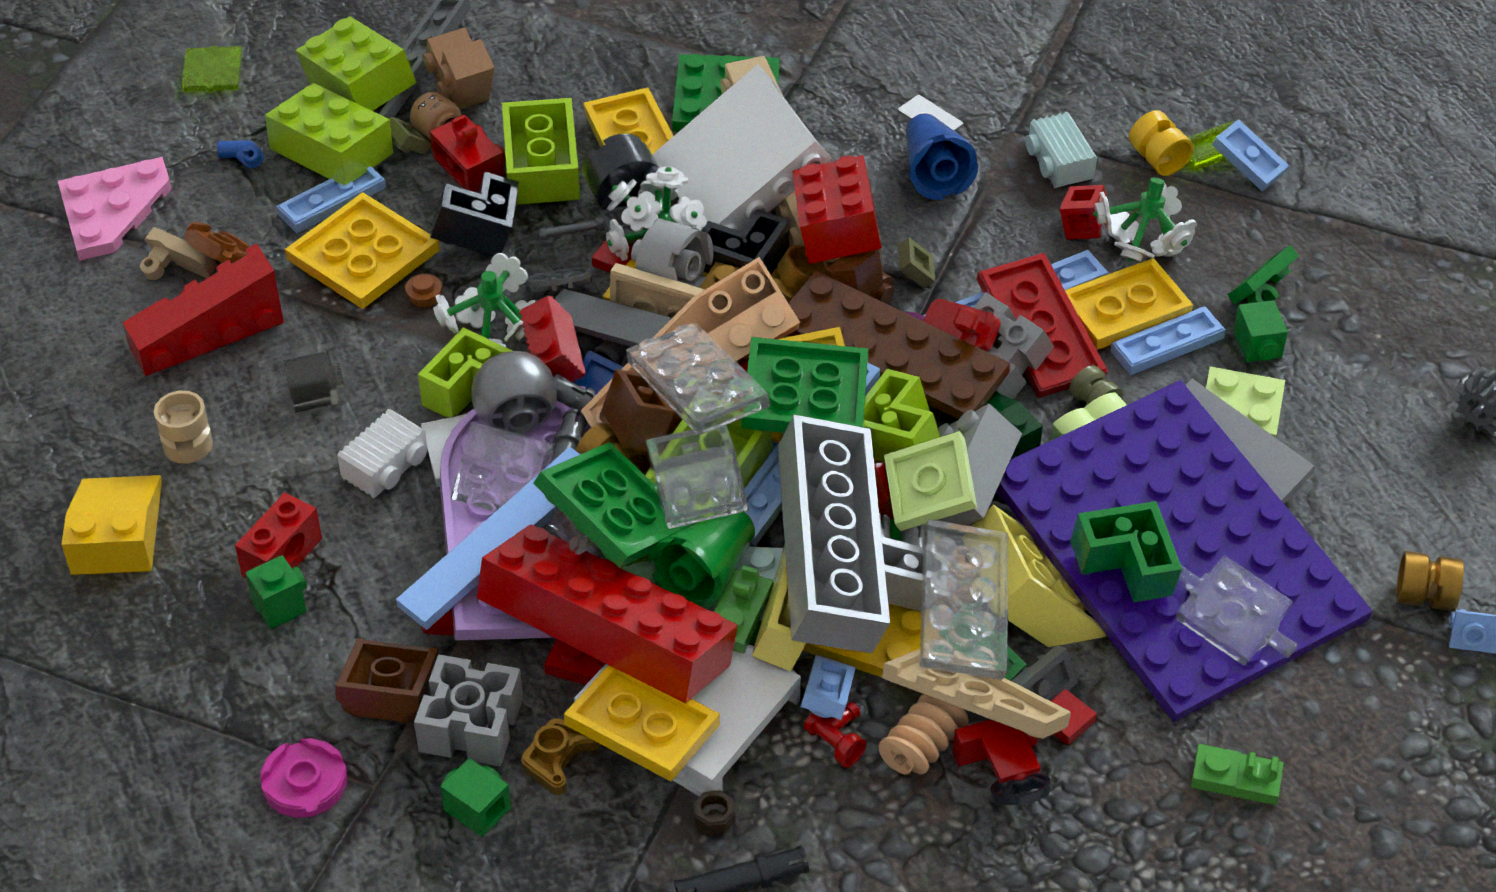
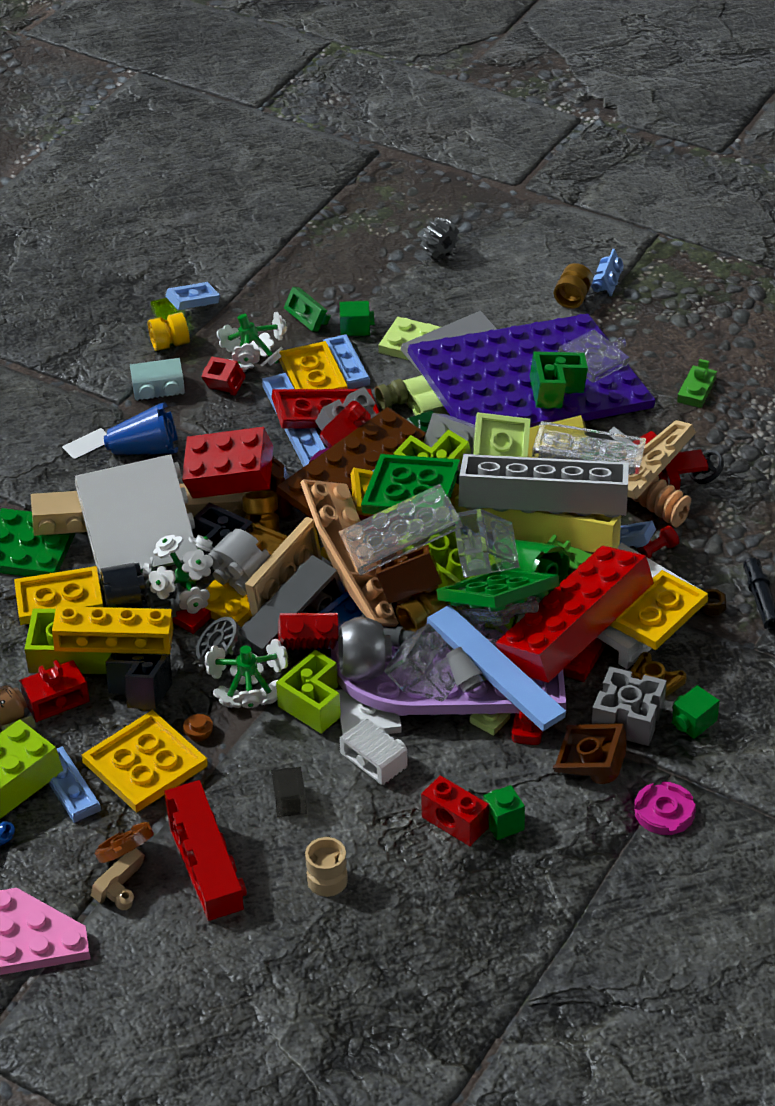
camera: 80 degrees left, 5 degrees down
(112, 525) = (409, 916): yellow slope -> none
(486, 500) = (465, 672): none -> light grey cone
(524, 163) = (112, 630): none -> yellow brick

